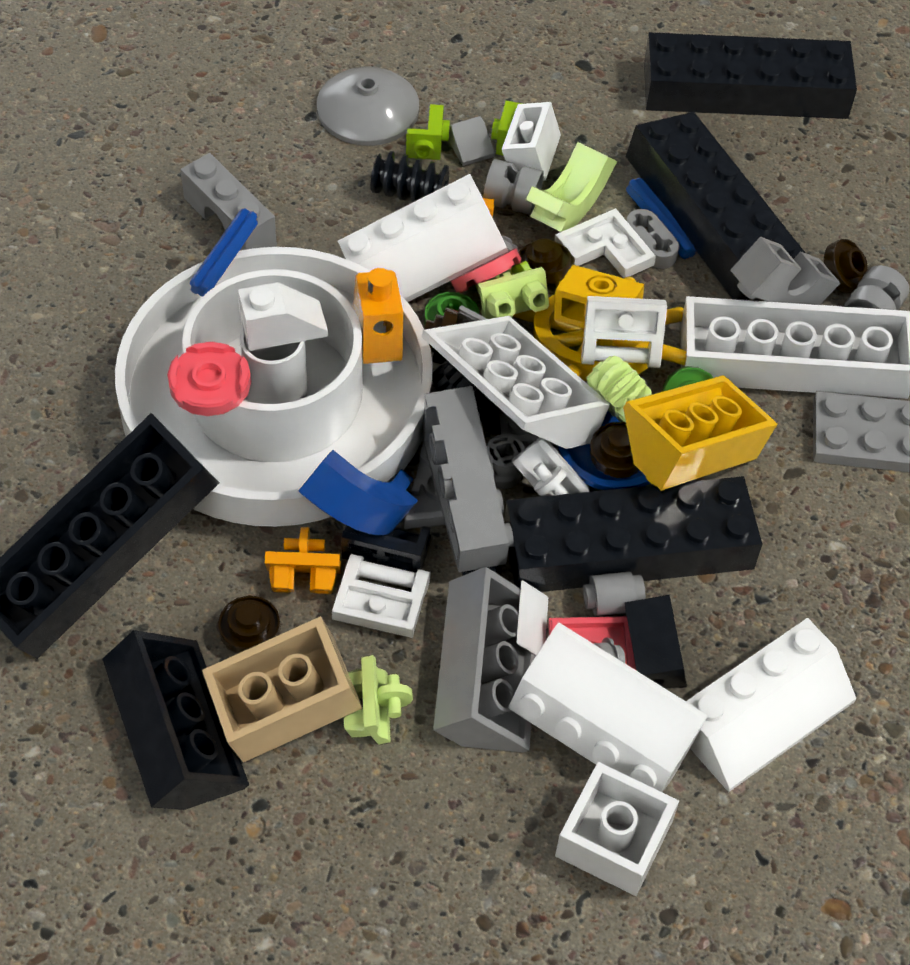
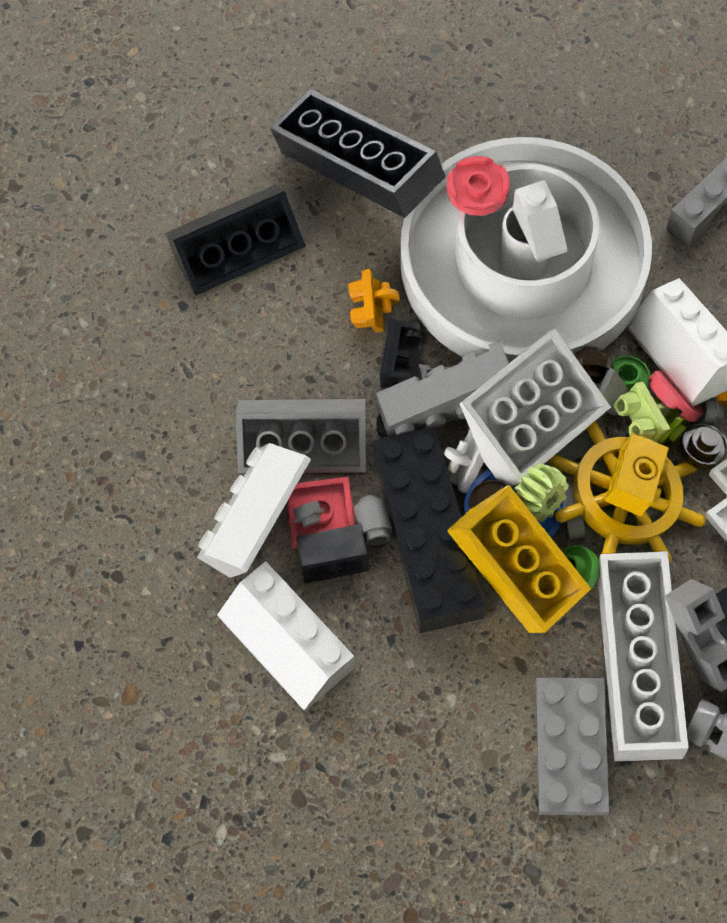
camera: 90 degrees right, 10 degrees up
(224, 252) = (630, 189): blue axle -> none
(248, 623) = (316, 274): dark brown plate -> none
(281, 689) = (256, 295): tan brick -> none
(357, 498) = (404, 320): blue arch -> none
(375, 301) = (573, 300): light orange torso -> none
(380, 605) = (344, 357): white plate -> none
(381, 701) = (262, 362): yellowish green hips -> none
(532, 618) = (345, 463): white sticker -> none
(616, 828) = (168, 527): white brick -> none
(624, 320) = (599, 489): white plate -> none

